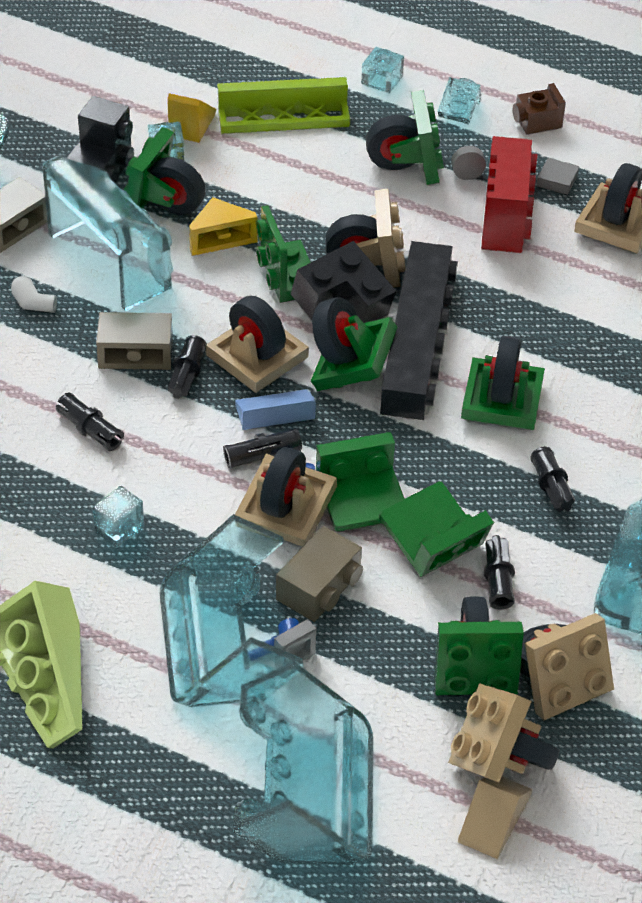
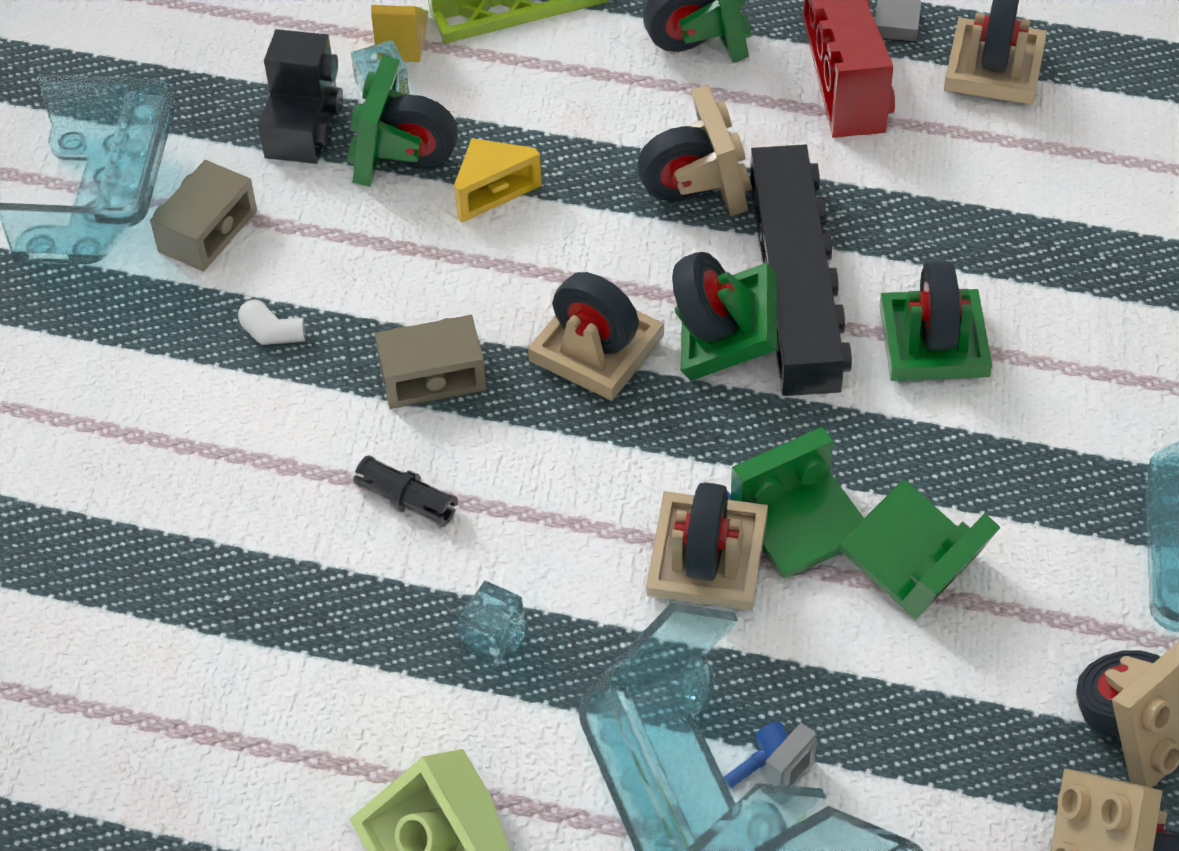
camera: 10 degrees left, 5 degrees up
(87, 195) = (311, 168): clear light blue windscreen -> none
(187, 366) = (510, 383): black axle -> none
(238, 453) = (620, 494): black pin -> none
(276, 409) = (646, 418): light blue slope -> none
(278, 257) = (591, 208): green bracket -> none
(319, 574) = (786, 648): dark tan brick -> none
(345, 275) = (684, 220): black brick -> none
(468, 162) = (780, 23): light grey tile -> none
(477, 652) = (1039, 718): green plate -> none
(499, 573) = (1018, 591): black axle -> none
(552, 478) = (1041, 442): black axle -> none

